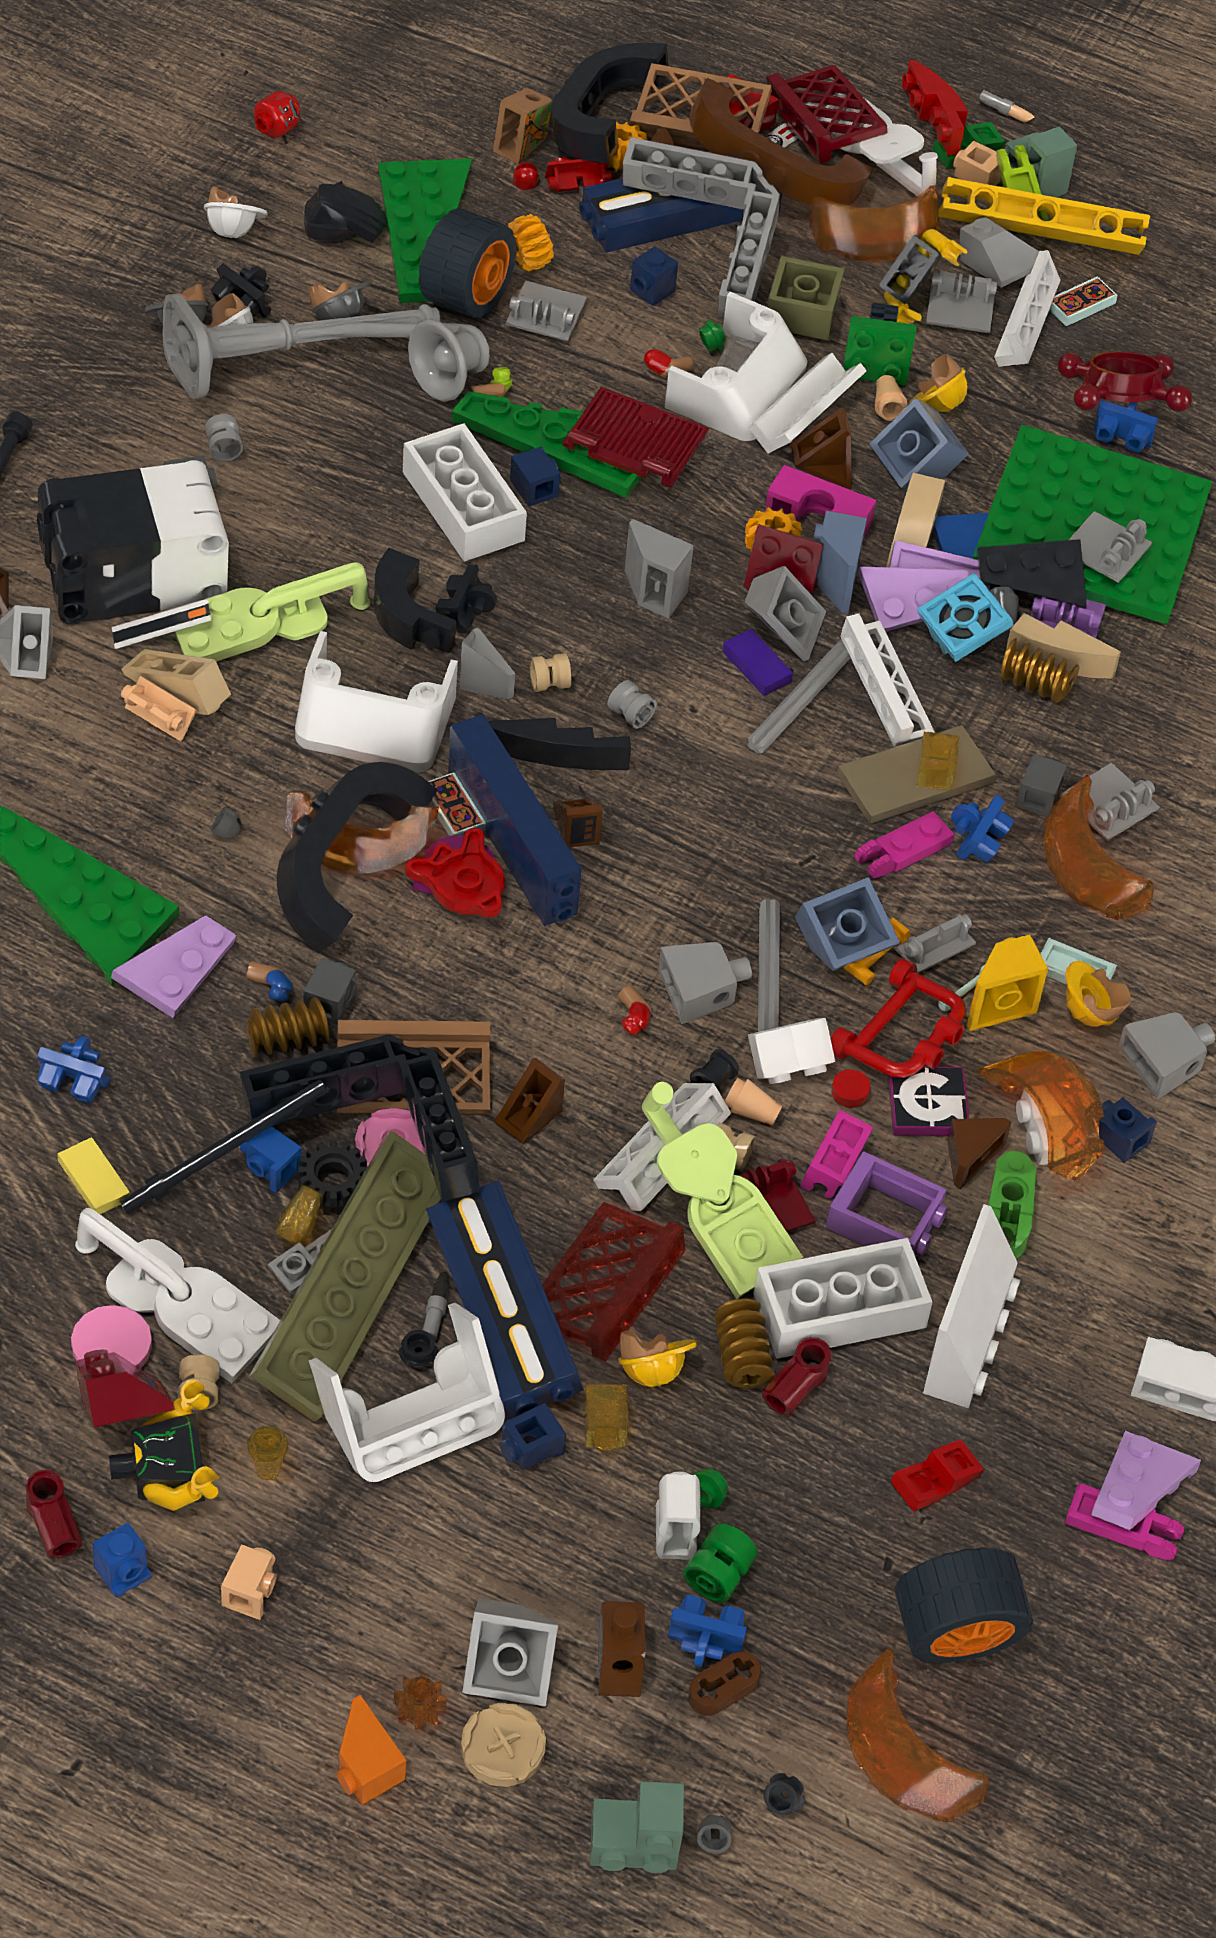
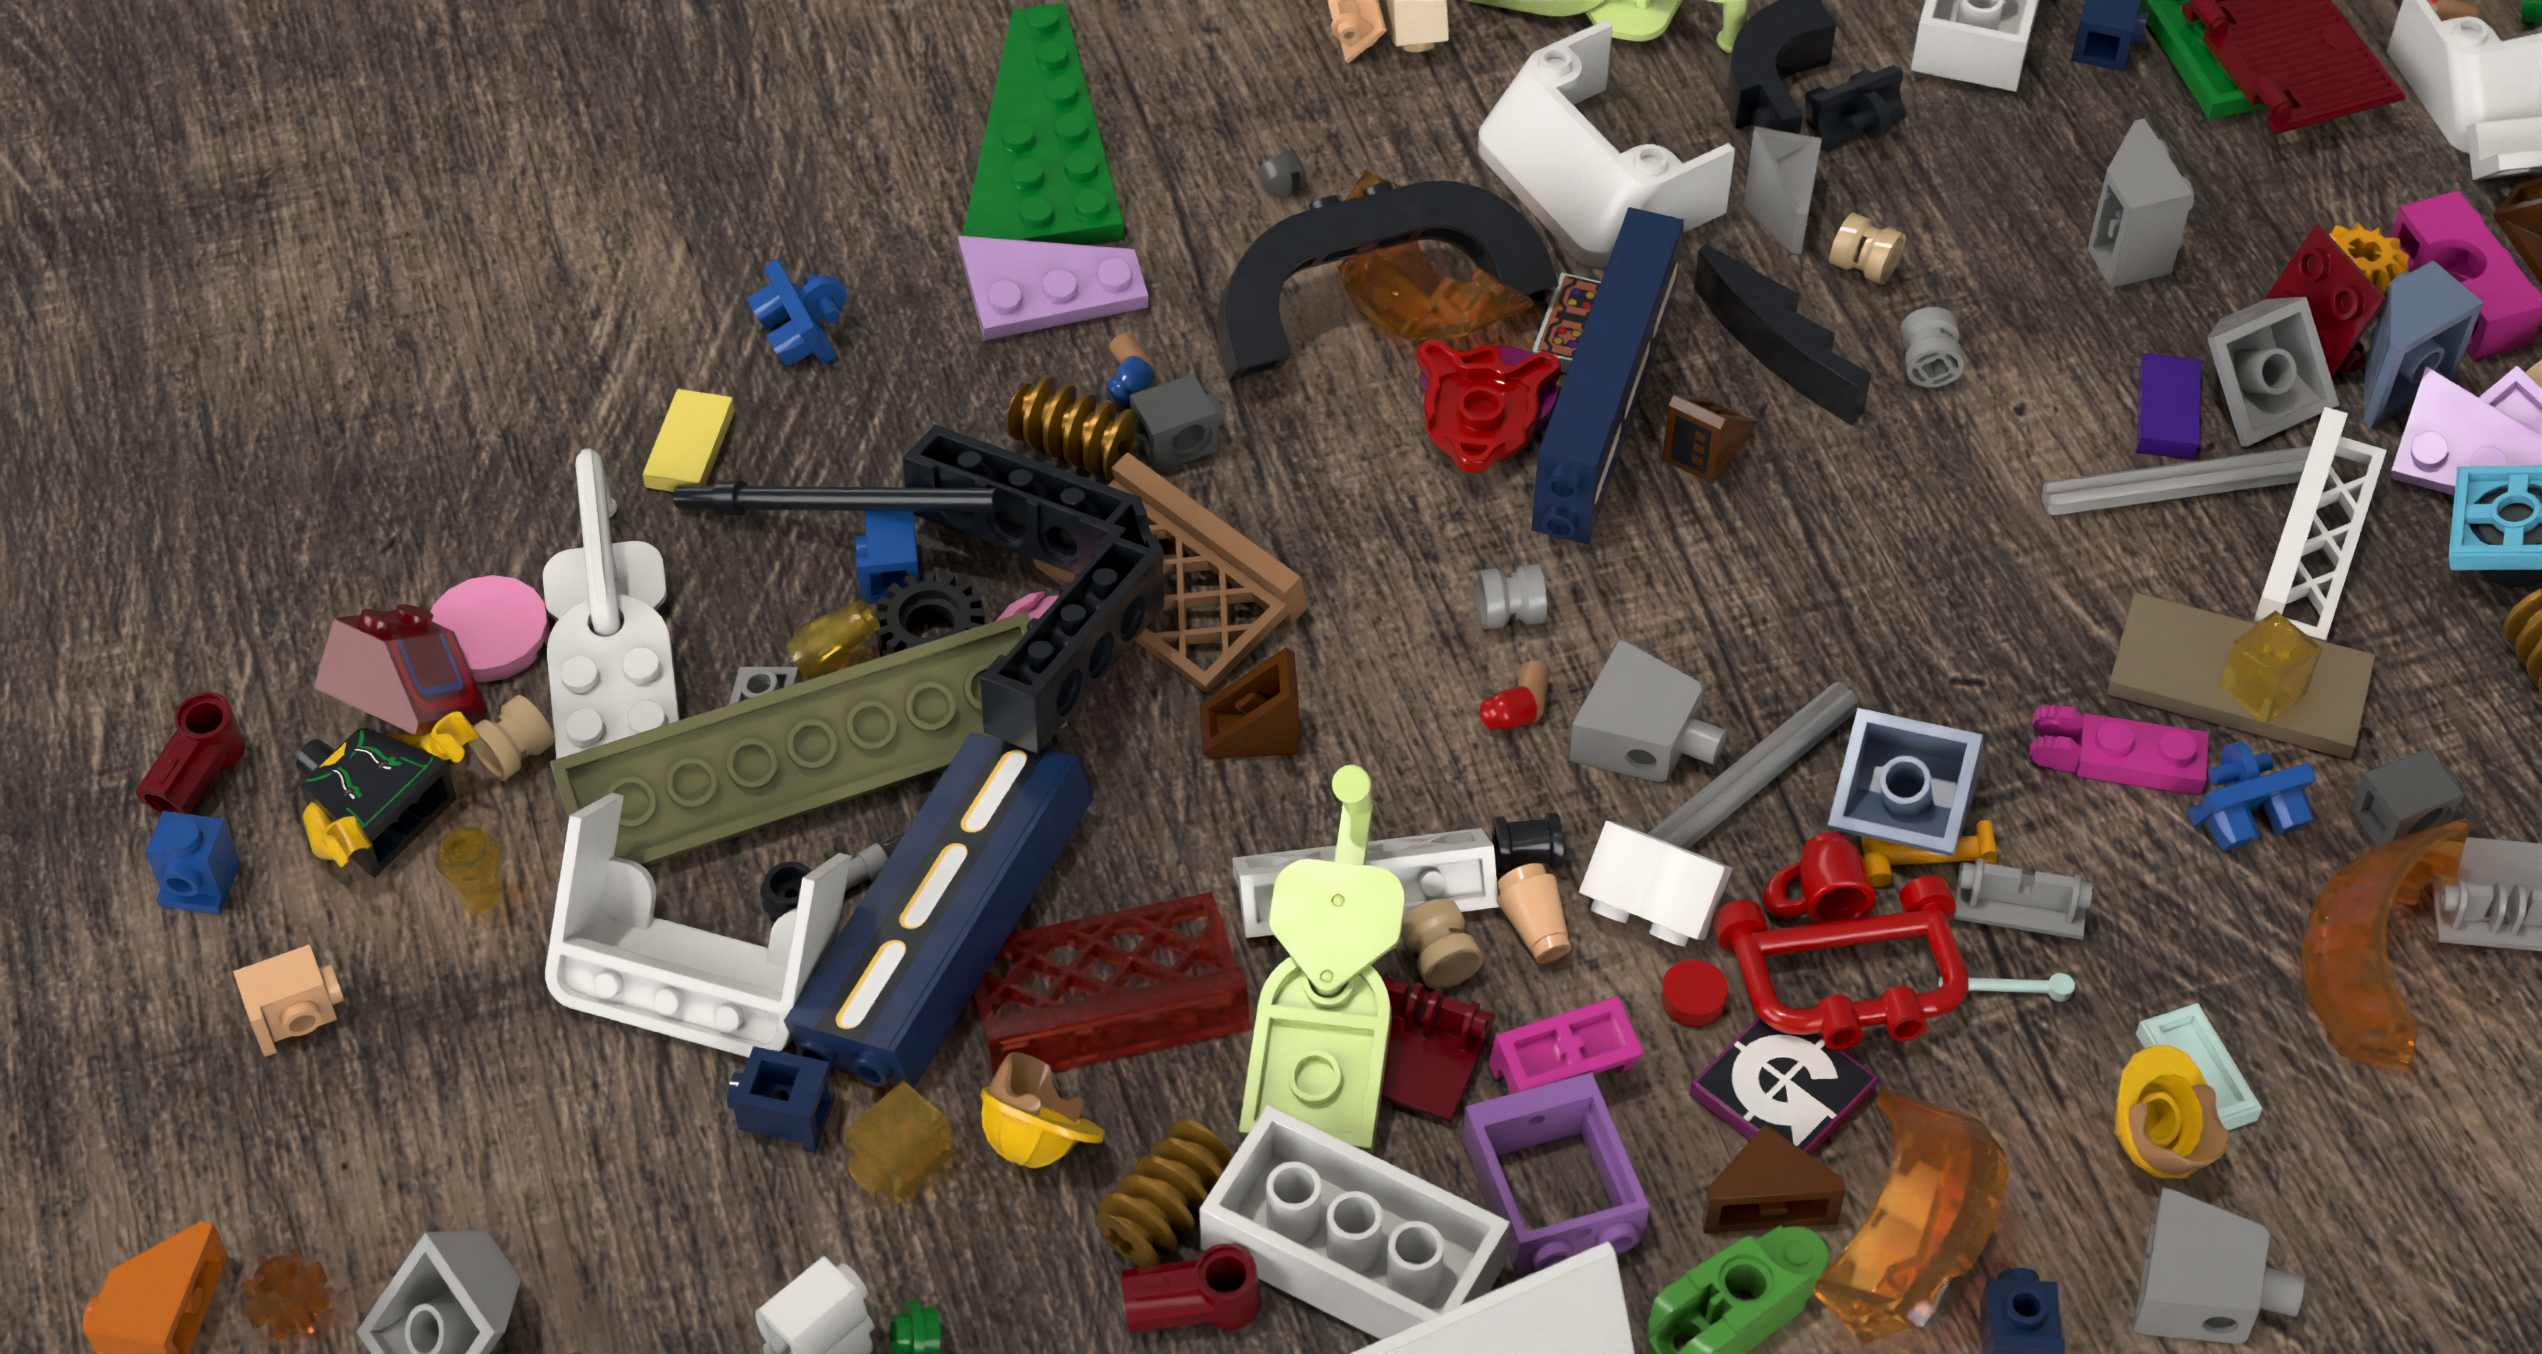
camera: 50 degrees right, 0 degrees up
(578, 966) = (1517, 596): none -> light grey wheel
(855, 993) = (1831, 881): none -> red piece
(1008, 983) = (2040, 1007): yellow slope -> none

